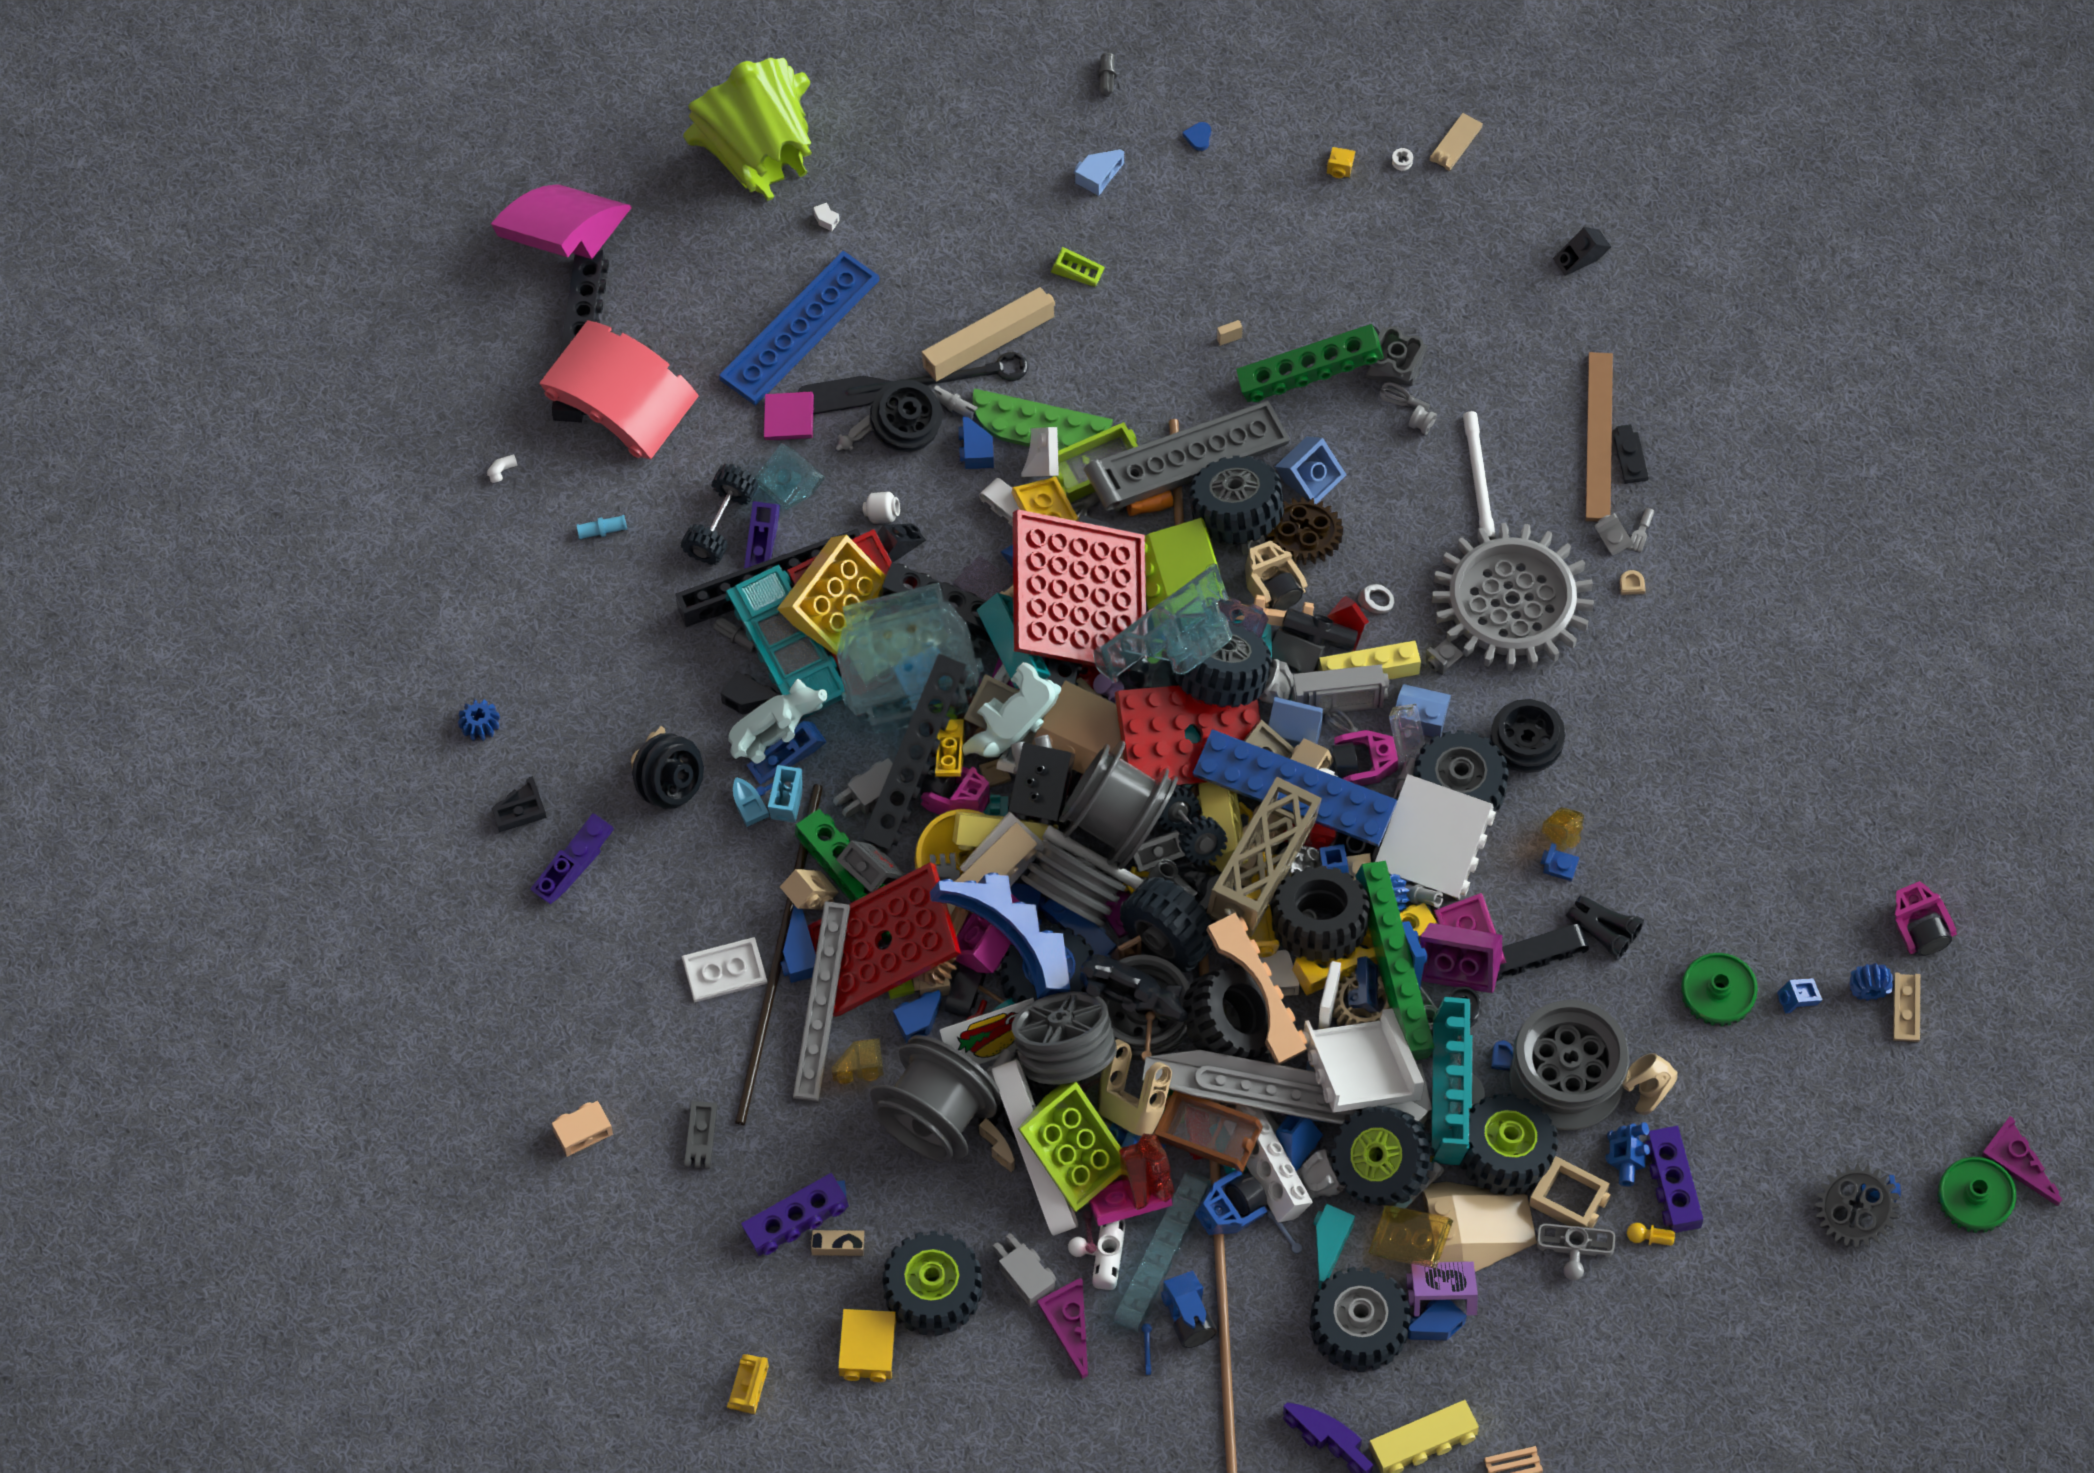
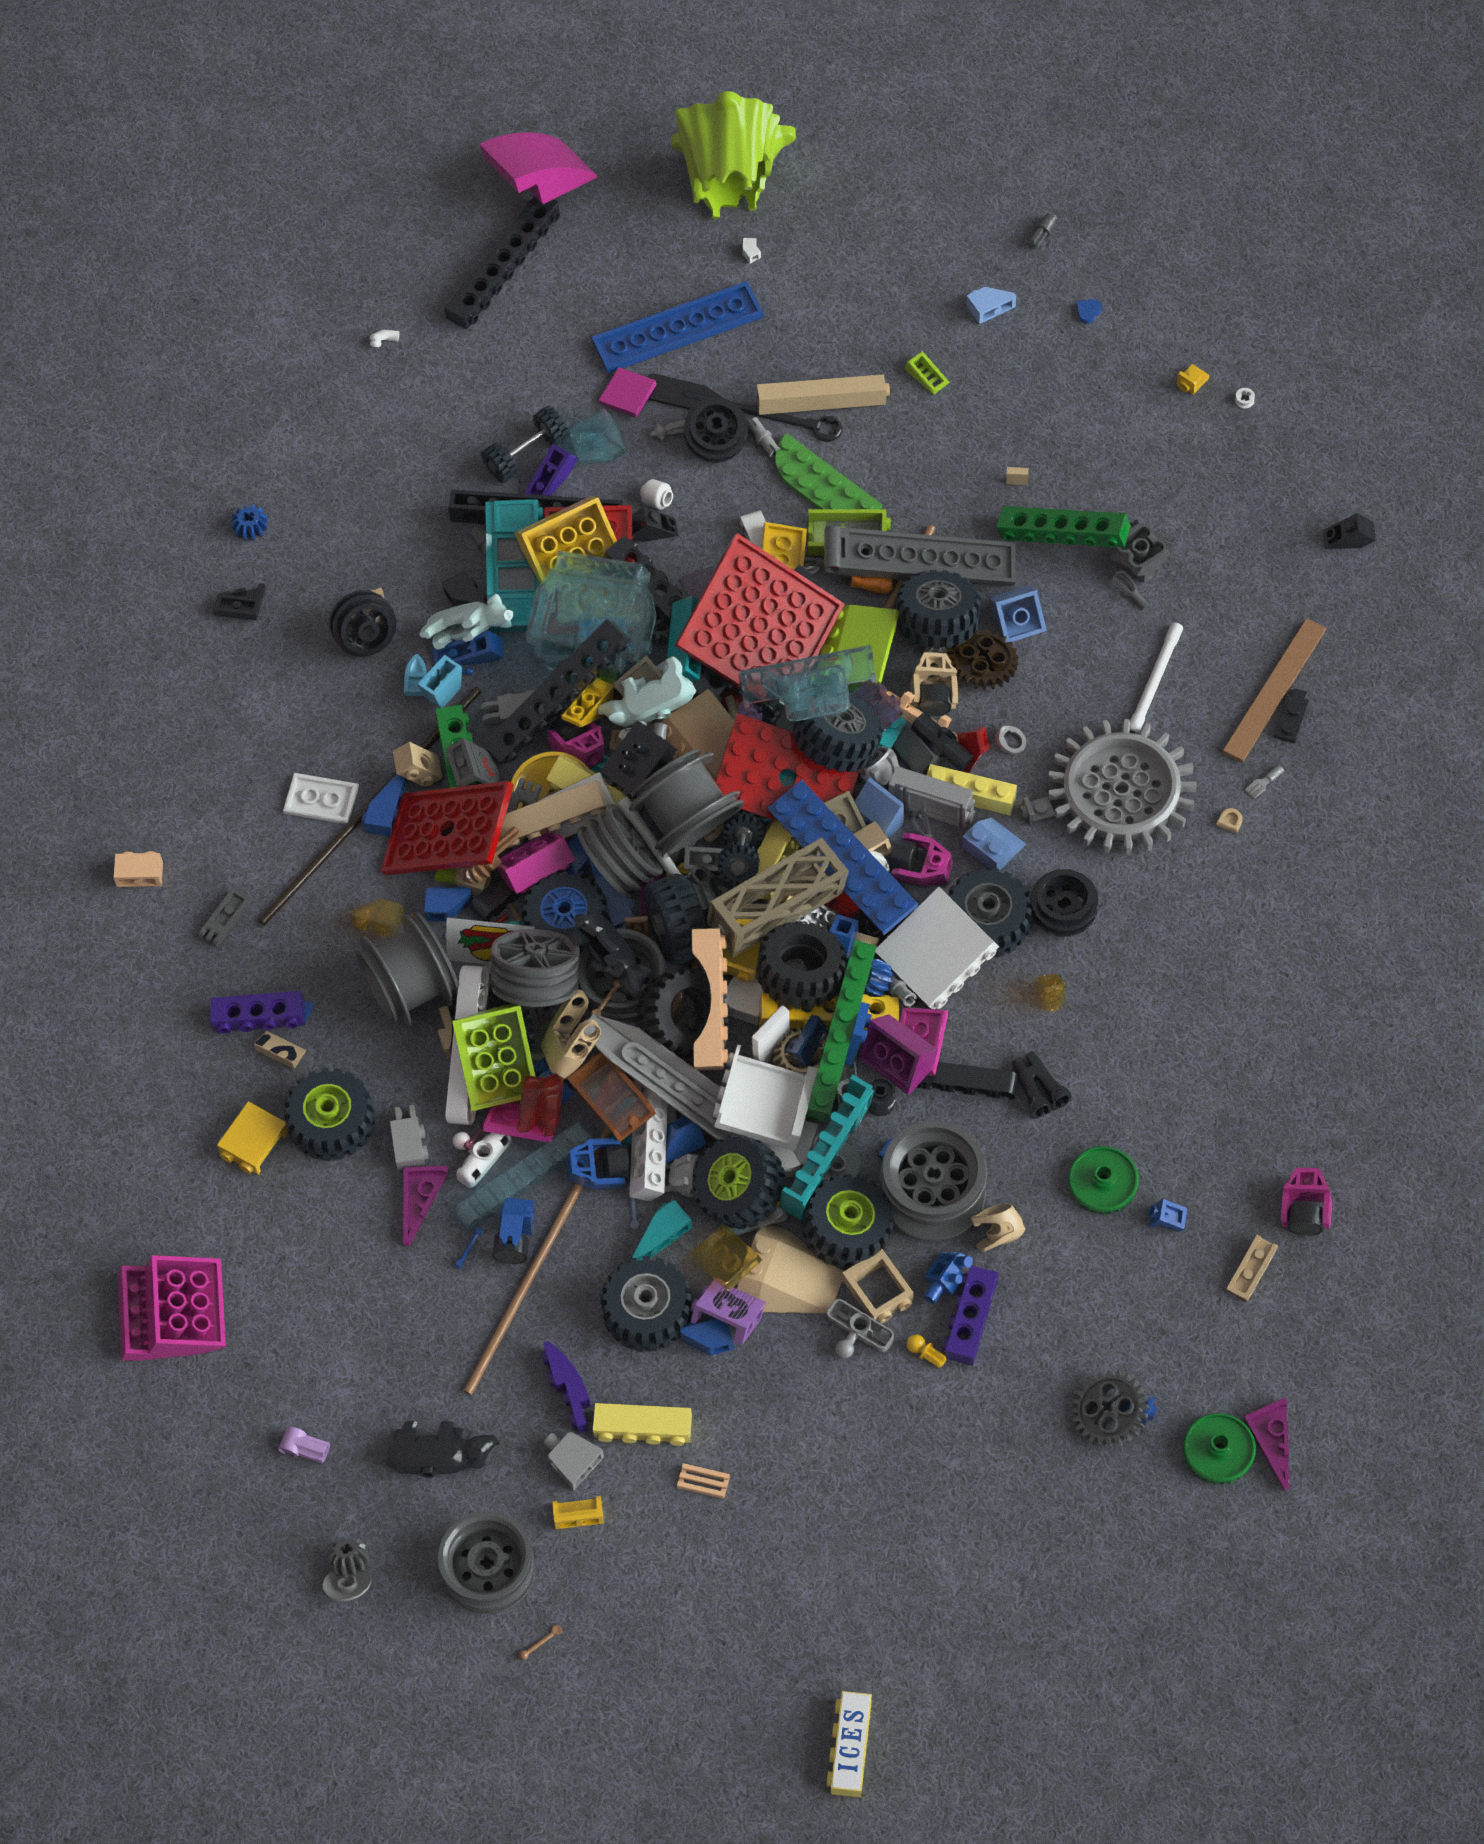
camera: 30 degrees right, 0 degrees up
(573, 860) = (255, 662): dark purple slope -> none
(601, 527) = (432, 415): medium azure pin -> none
(620, 387) = (505, 313): coral panel -> none
(748, 1383) = (146, 1126): yellow hinge -> none
(821, 1001) = (375, 856): light grey tile -> none
(977, 446) = (760, 478): blue slope -> none
(1018, 922) = (552, 859): arch -> none
(1042, 453) = (802, 511): white plate -> none
(1406, 731) = (964, 853): clear hinge -> none
(1422, 419) = (1133, 612): light grey wheel -> none
(1456, 141) = (1298, 402): tan hinge -> none
(1559, 863) = (1031, 1017): blue bracket -> none
(1613, 534) = (1237, 773): light grey bracket -> none
(1871, 981) = (1232, 1232): blue gear -> none

